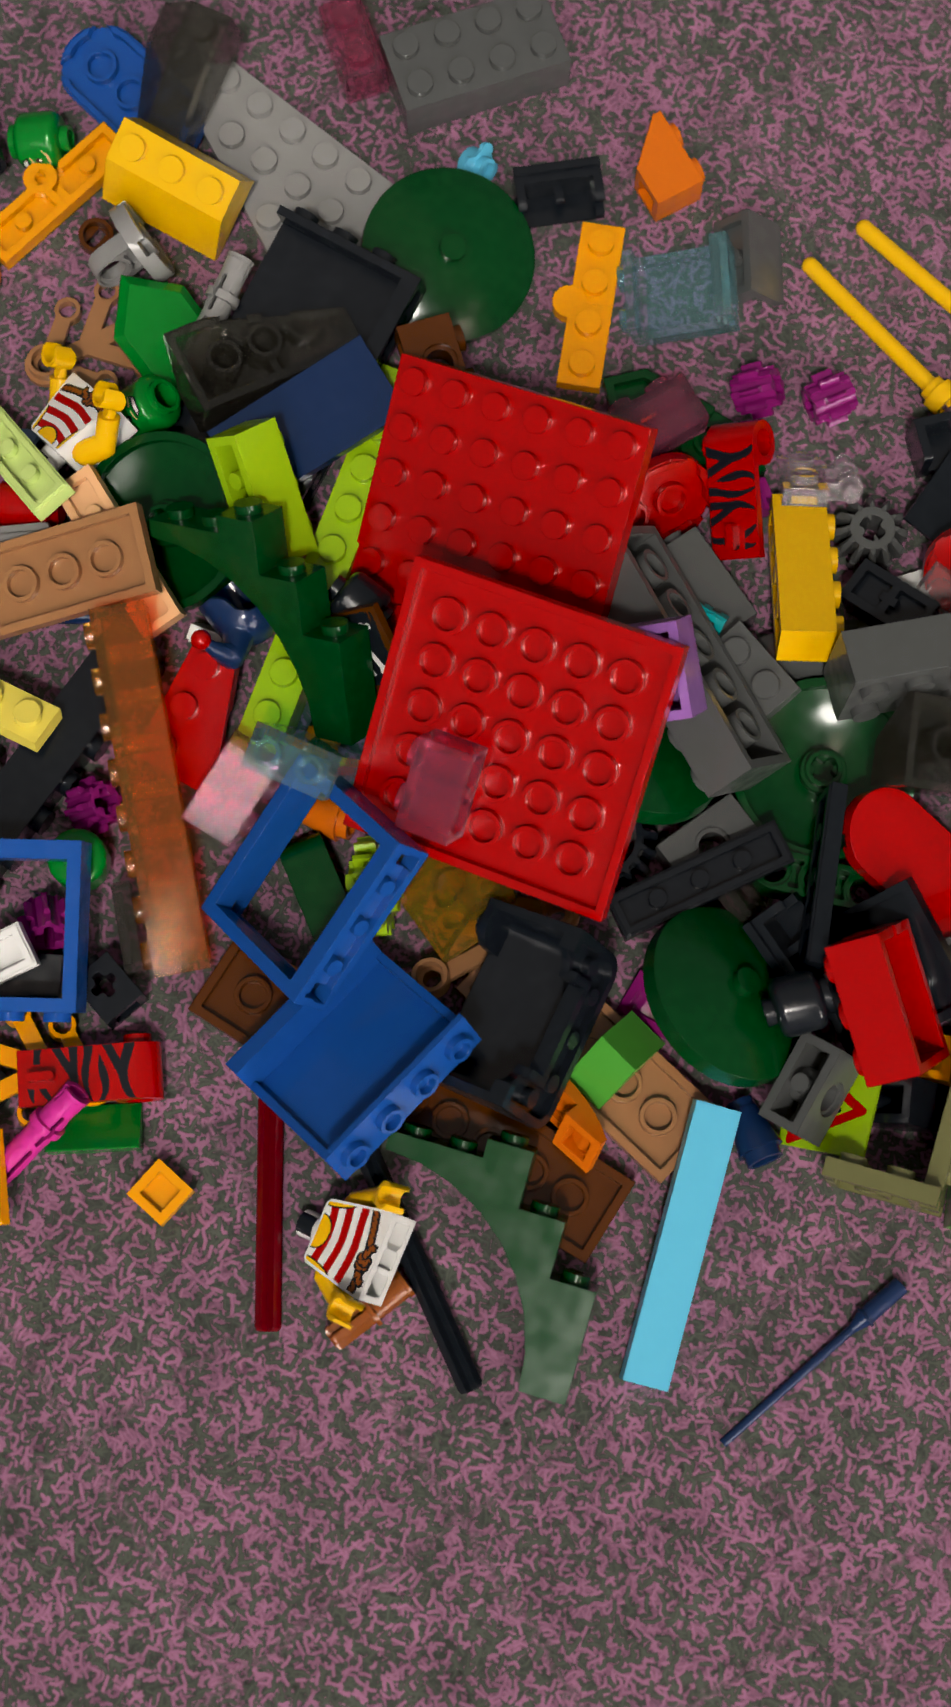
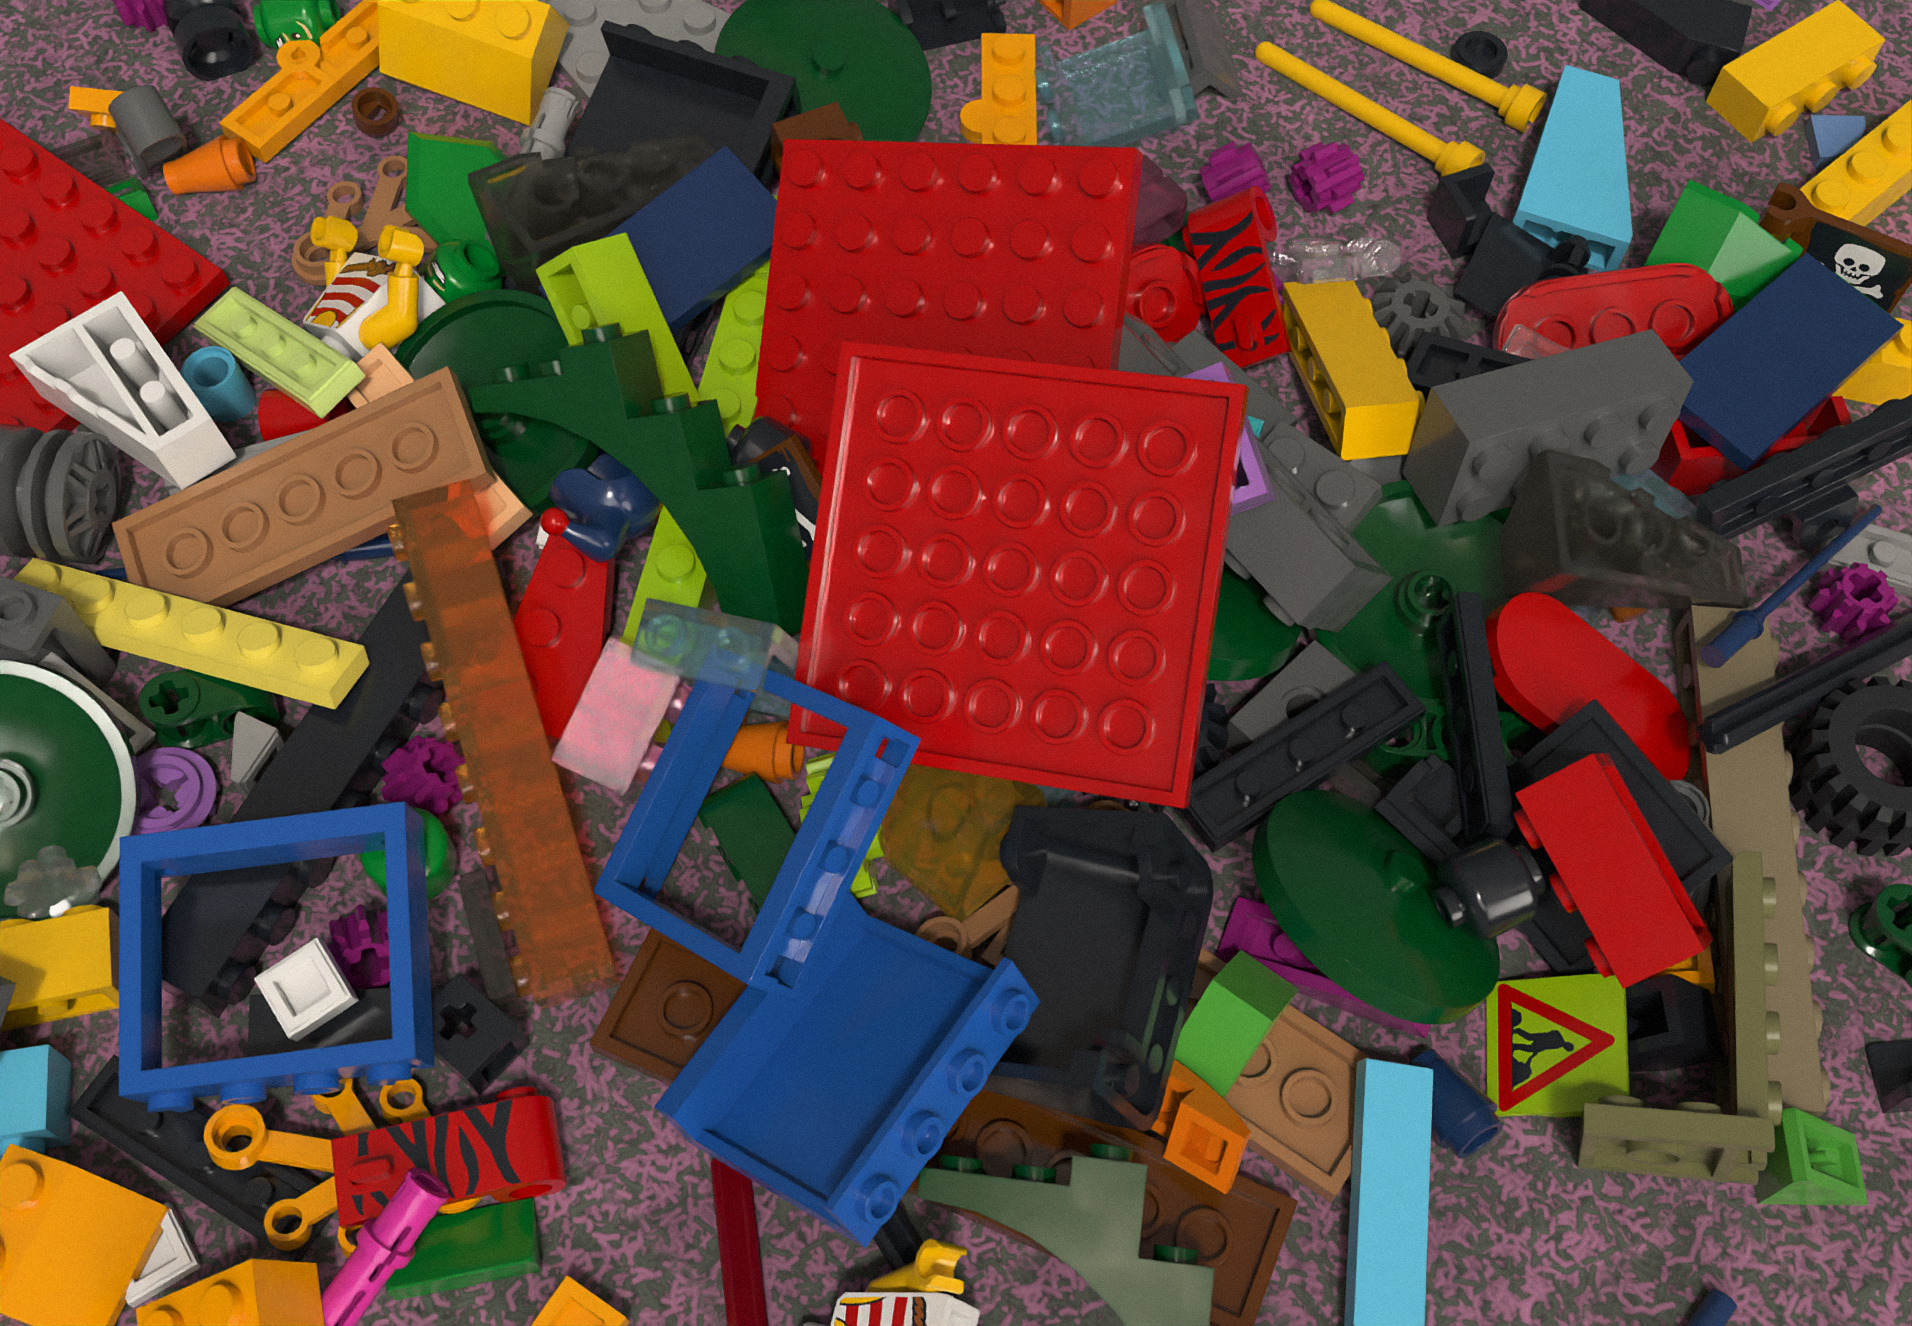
camera: 10 degrees left, 15 degrees down
(131, 248) = (419, 105): light grey tile -> none
(439, 786) = (920, 649): clear pink brick -> none
(810, 1088) = (1528, 1016): dark grey brick -> none

